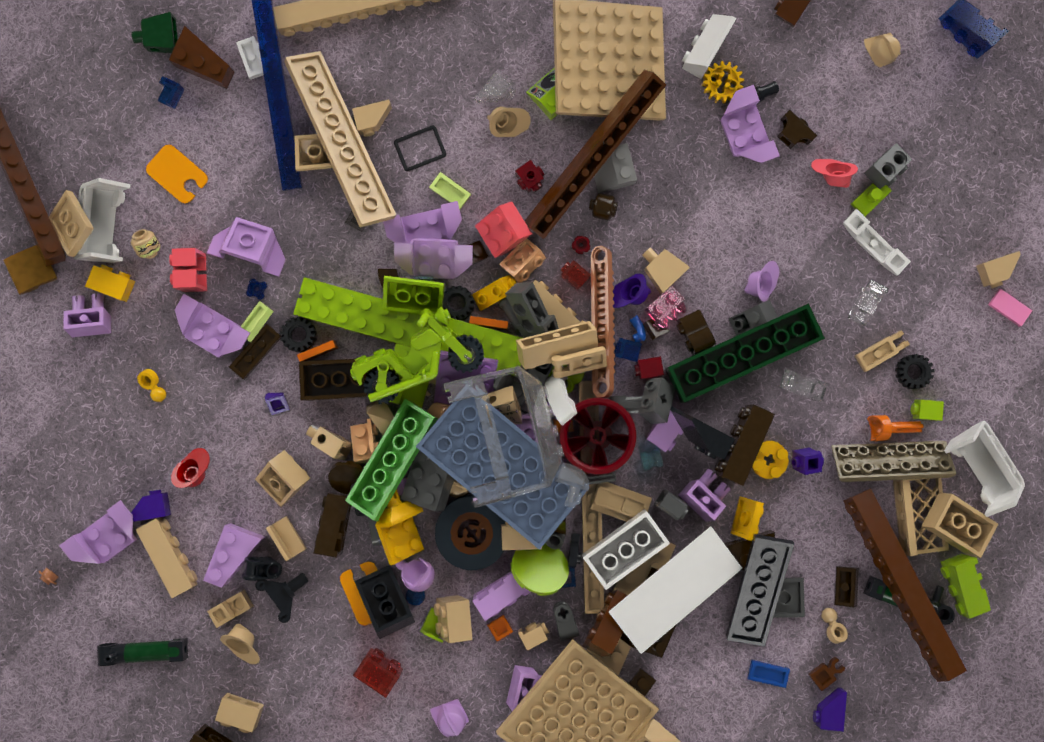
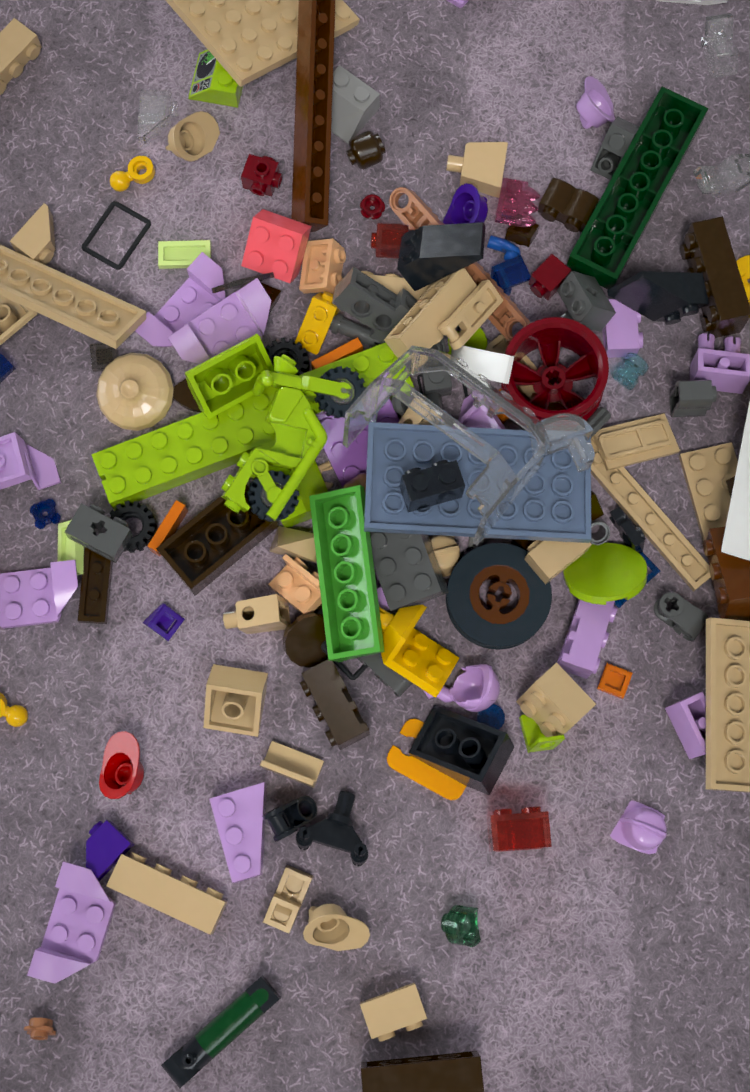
camera: 30 degrees left, 10 degrees down
(265, 320) = (108, 545): none -> dark grey brick
(310, 696) = (461, 925): none -> clear green piece
(359, 254) = (135, 391): none -> tan hat
(447, 116) = (121, 180): none -> yellow plate
(466, 238) = (241, 282): none -> clear smoke piece
(470, 453) = (432, 485): none -> black brick
(534, 634) = (658, 657): tan brick -> none
(592, 309) = (439, 251): none -> black slope
(625, 549) = (682, 479): white brick -> none

